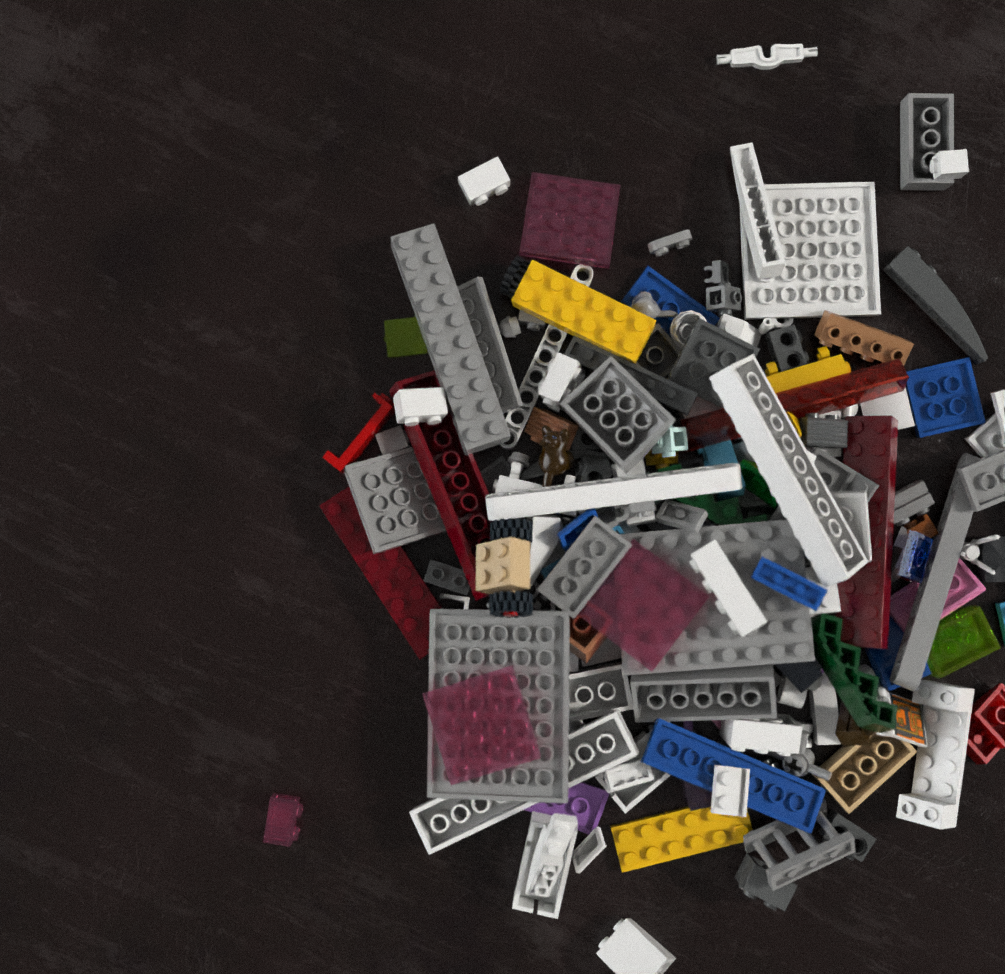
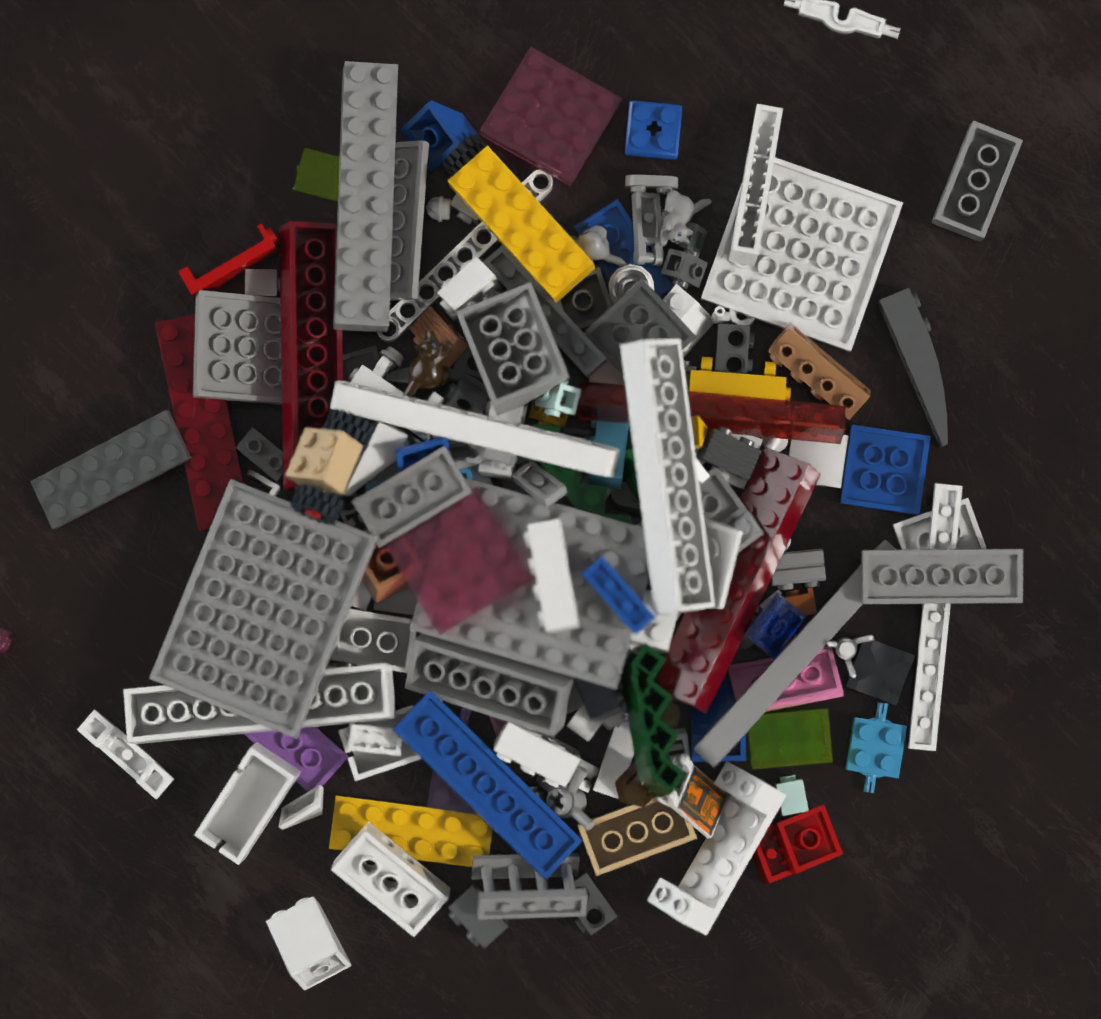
camera: 25 degrees right, 0 degrees up
(329, 637) = (110, 469): none -> dark grey plate
(420, 406) = (304, 257): white brick -> none
(440, 862) = (128, 756): none -> white slope
(482, 725) = (237, 621): clear pink plate -> none
(484, 182) = (473, 38): white brick -> none
(485, 261) = (440, 128): none -> blue slope
(548, 854) = (255, 787): white slope -> none
(661, 187) = (639, 140): none -> blue brick
(681, 279) = (647, 228): none -> light grey plate
(684, 880) = (385, 894): none -> white brick
(702, 261) = (676, 215): none -> light grey animal
(730, 791) = (475, 796): white plate -> none
(949, 164) = (982, 216): white brick -> none
(974, 679) = (795, 795): none -> light aqua brick

